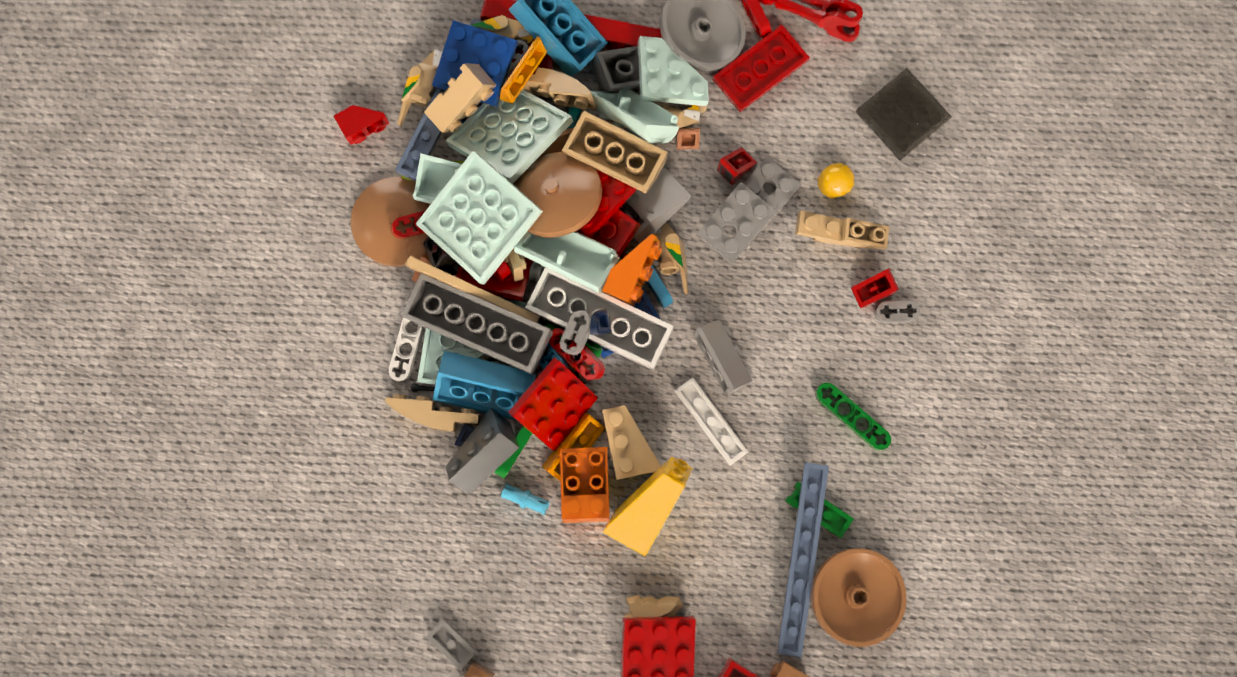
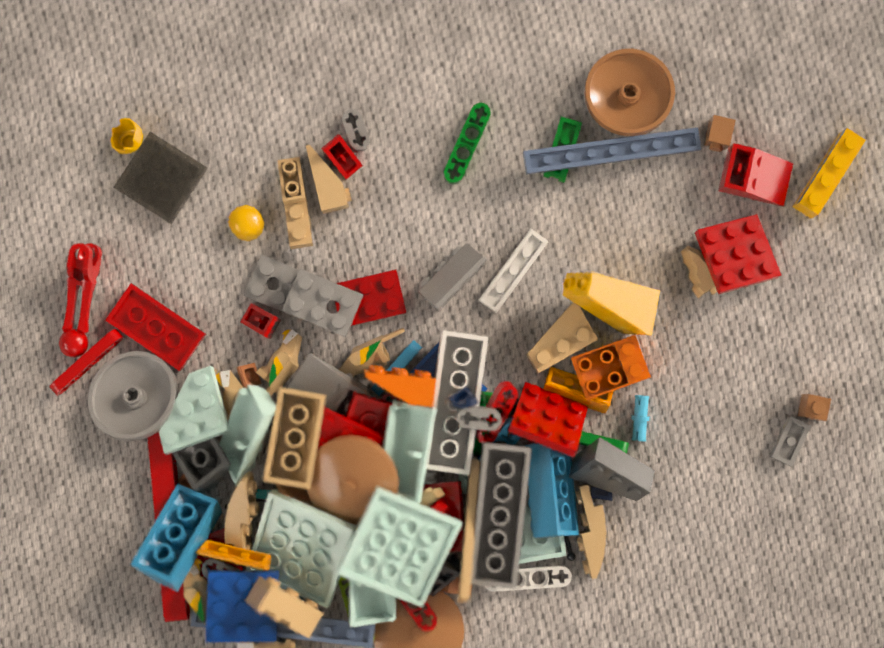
camera: 110 degrees left, 5 degrees up
(690, 172) = (282, 362): none -> tan animal
(726, 283) = (380, 299): none -> red plate
(846, 267) = (328, 186): none -> tan slope
(952, 94) = (126, 137): none -> yellow hair

